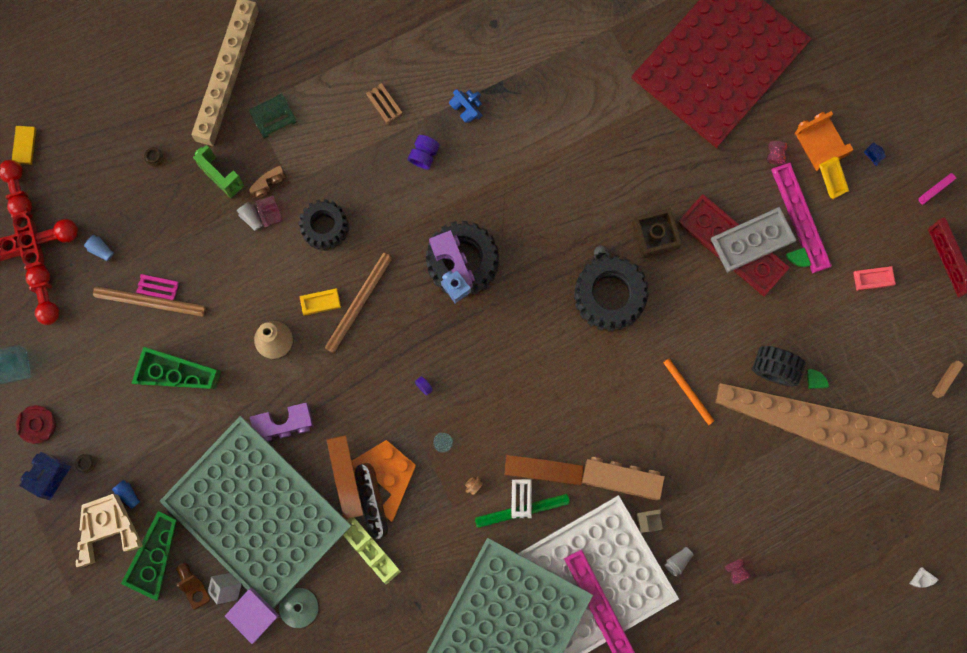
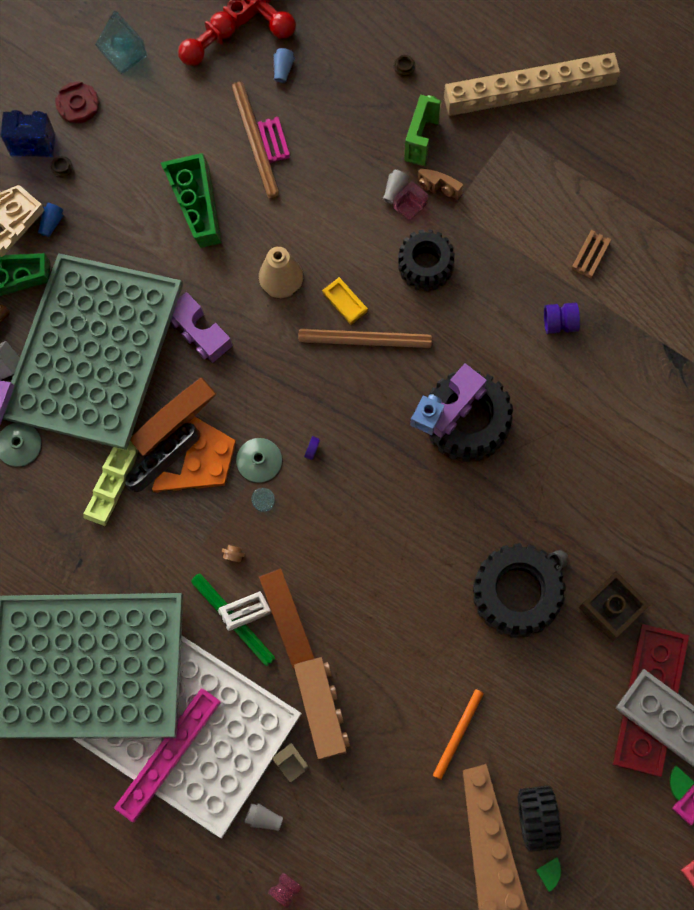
camera: 65 degrees right, 5 degrees down
(270, 111) = (515, 148): clear green plate -> none
(417, 437) = (266, 468): none -> sand green dish
(461, 99) = (642, 338): blue hips -> none

